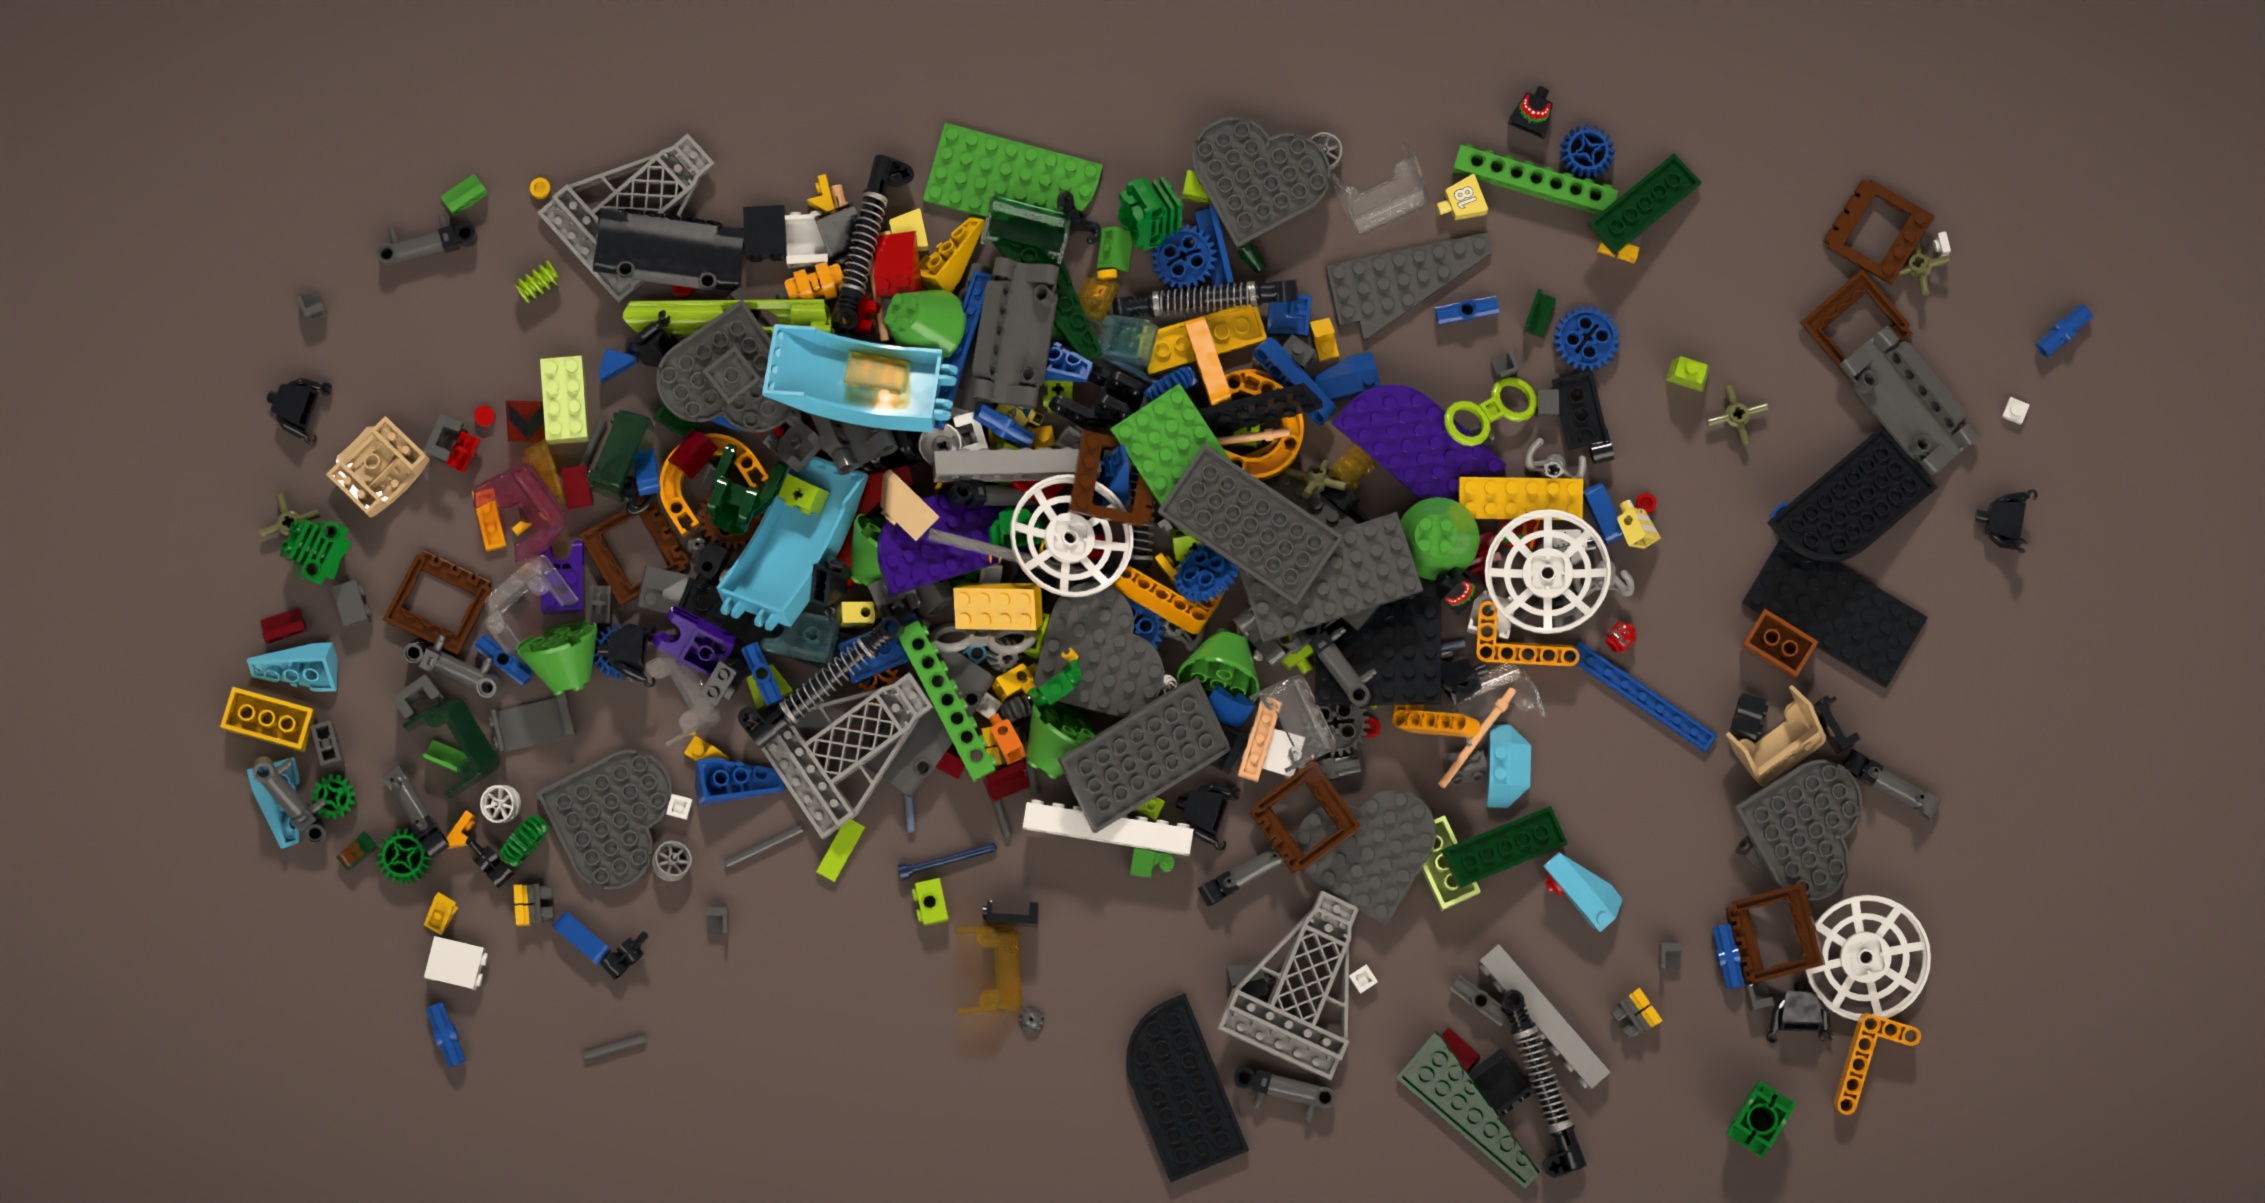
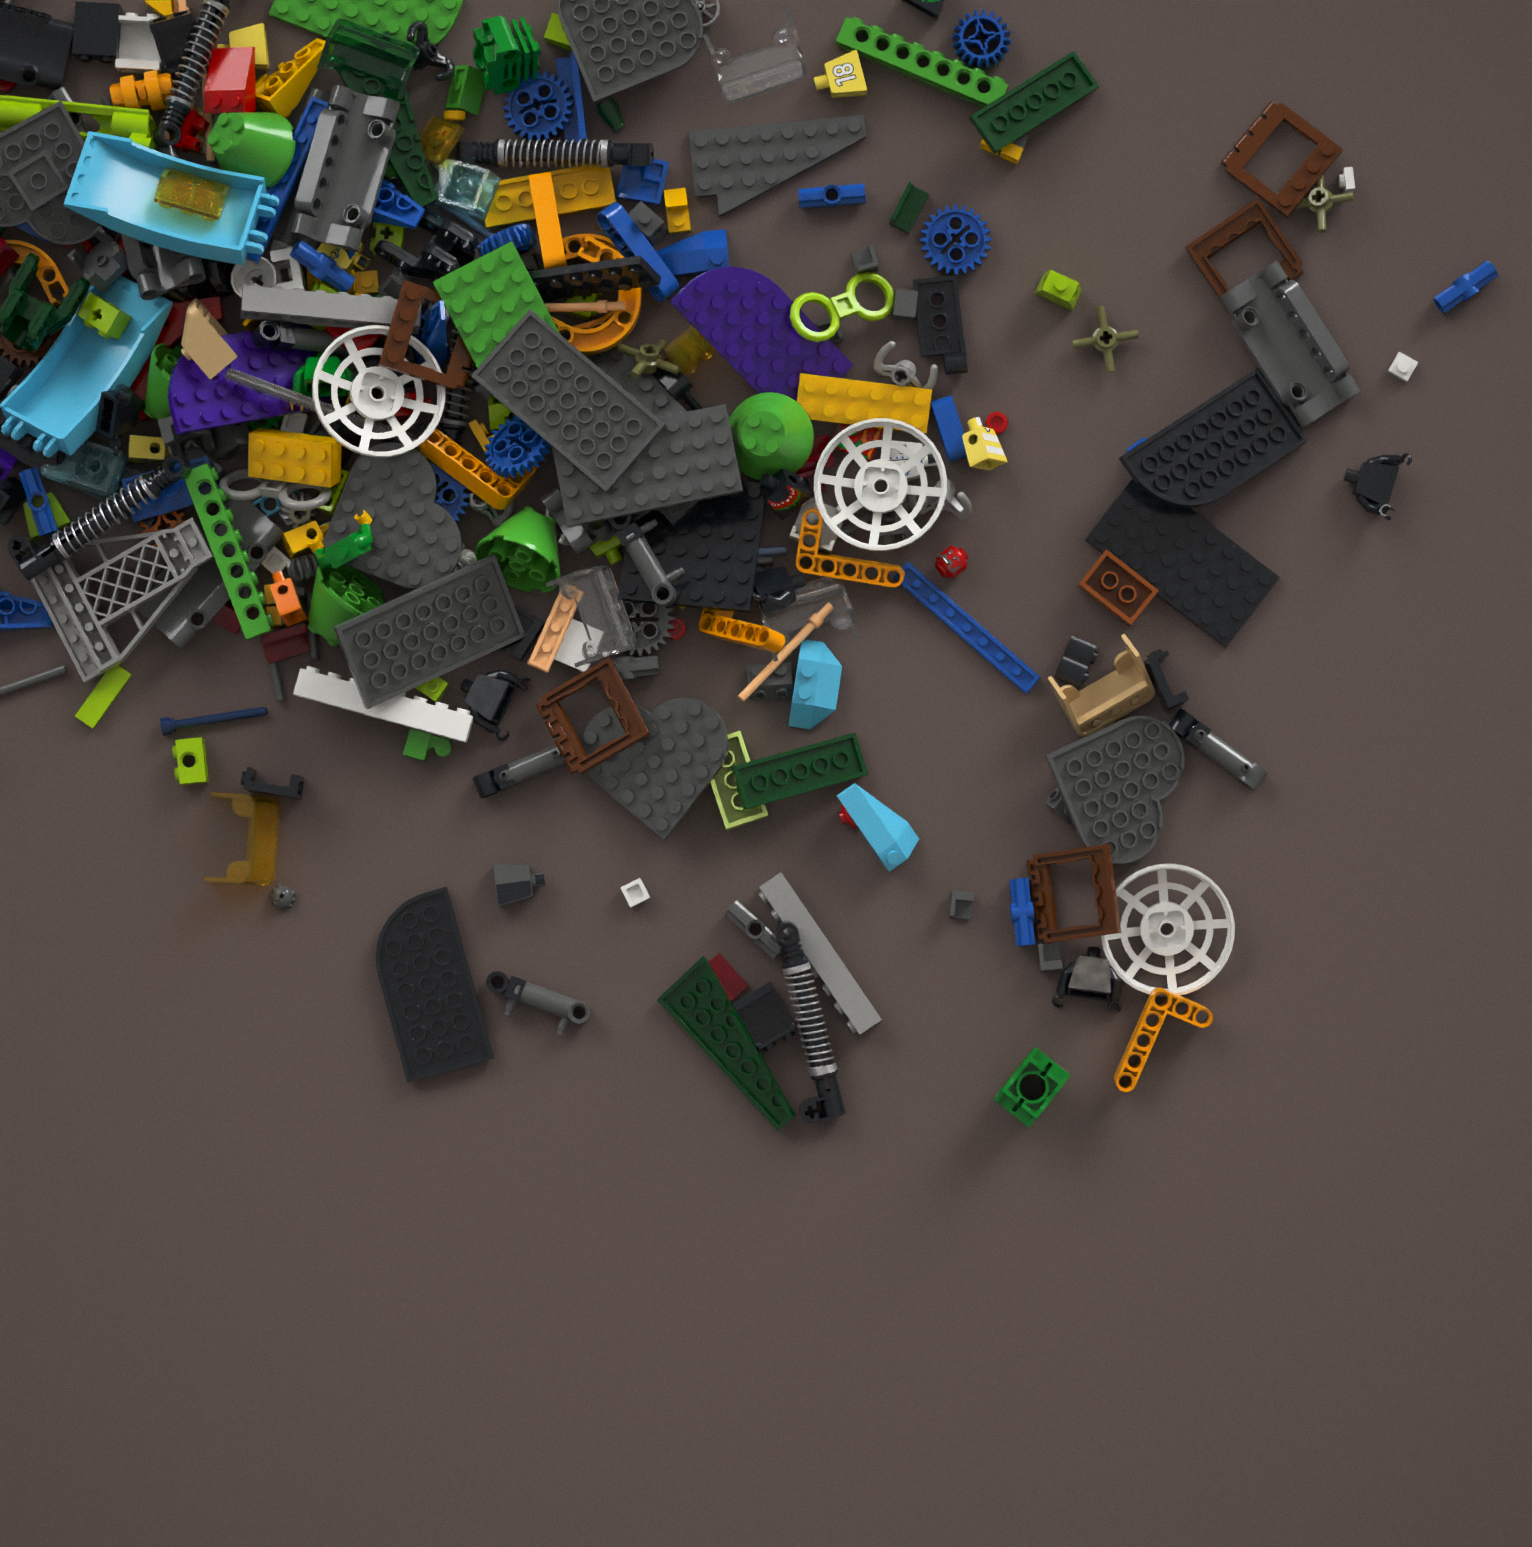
camera: 10 degrees right, 5 degrees up
(910, 819) = (180, 666): sand blue bar -> none
(1230, 709) = (528, 593): blue slope -> none
(1281, 1032) = (541, 939): light grey wing -> none
(1640, 1022) = (911, 953): dark grey hips -> none

